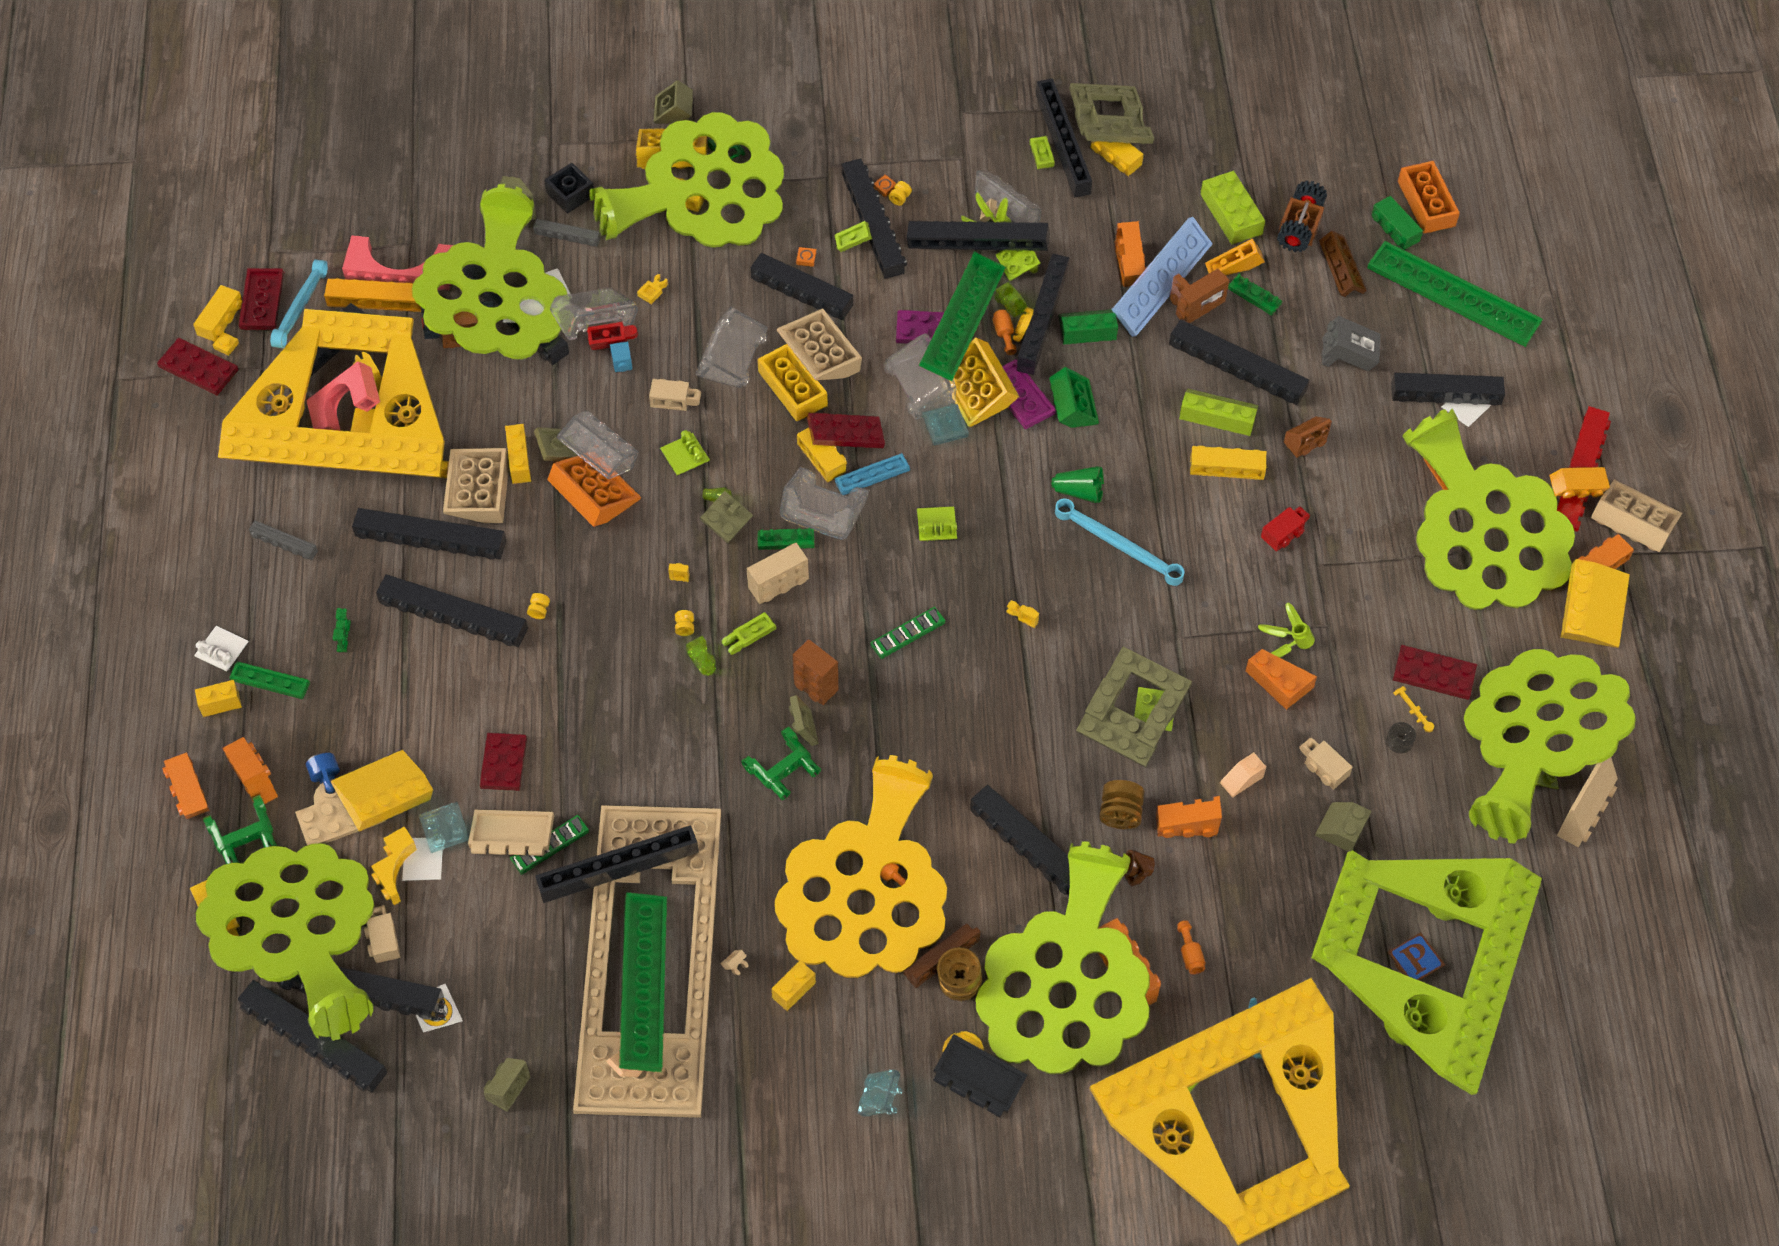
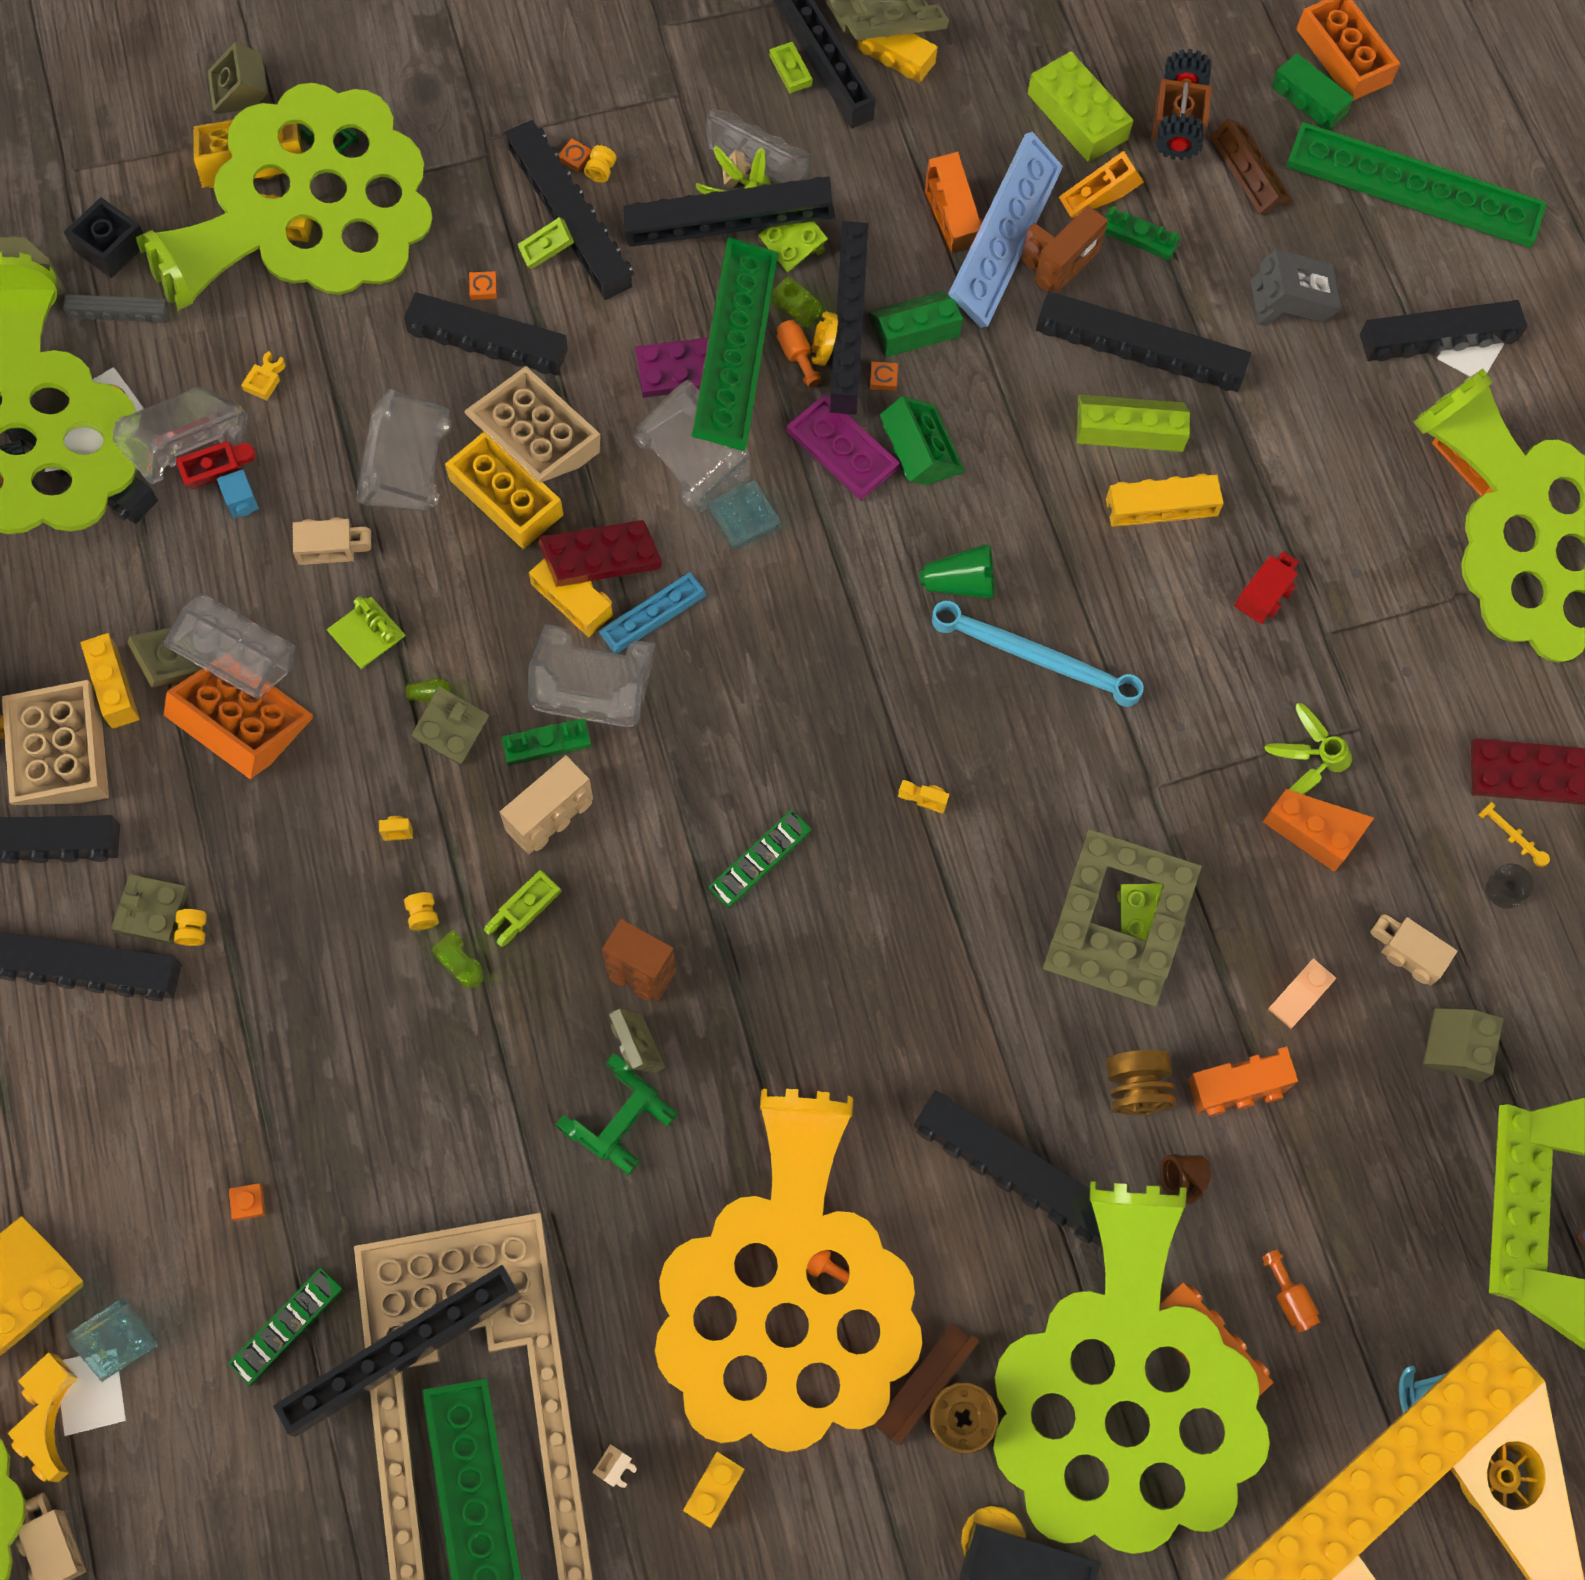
camera: 15 degrees left, 10 degrees up
(503, 761) = (186, 1199): dark red plate -> none
(512, 831) = (220, 1318): tan hinge -> none
(514, 592) = (149, 909): none -> olive hinge
(540, 770) = (246, 1202): none -> orange plate
(936, 523) = (765, 674): lime hinge -> none
(982, 384) = (786, 443): yellow slope -> none
(1058, 355) = (883, 376): none -> orange tile
(1308, 436) = (1268, 437): dark orange slope -> none

